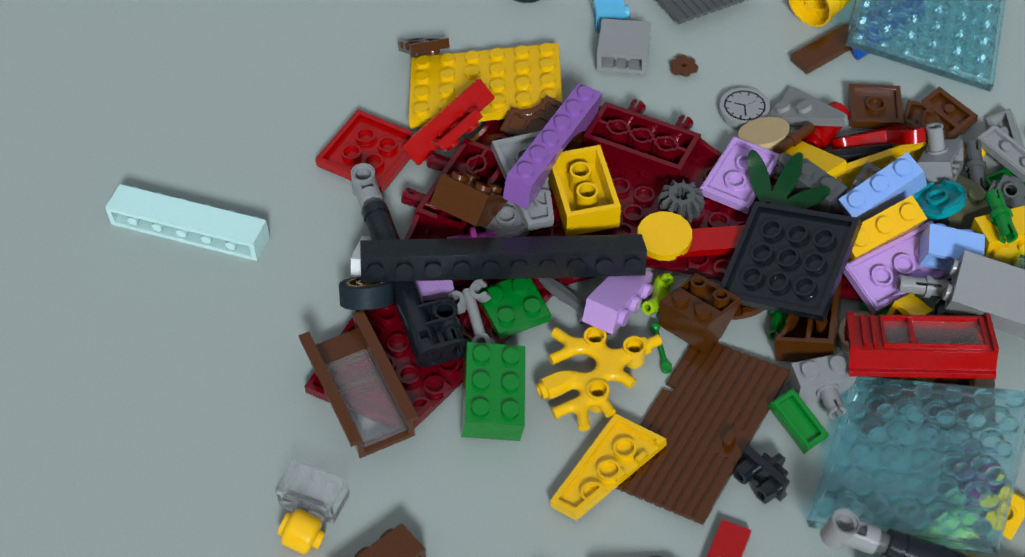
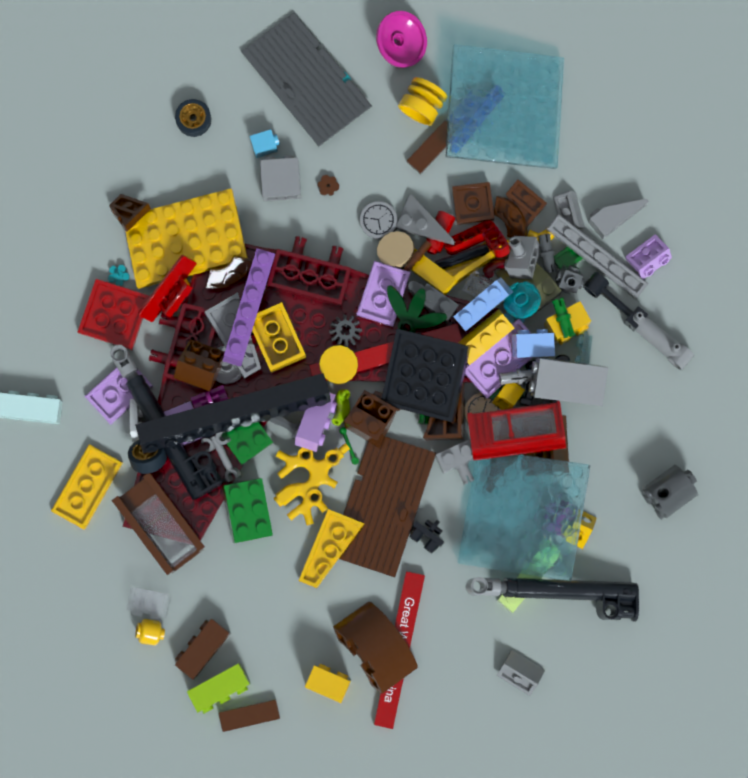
camera: 10 degrees left, 30 degrees up
(268, 336) = (86, 487): none -> yellow tile
(336, 238) = (112, 396): none -> lavender tile
(389, 114) = (118, 275): none -> teal plant
(798, 420) = (445, 490): green tile -> none

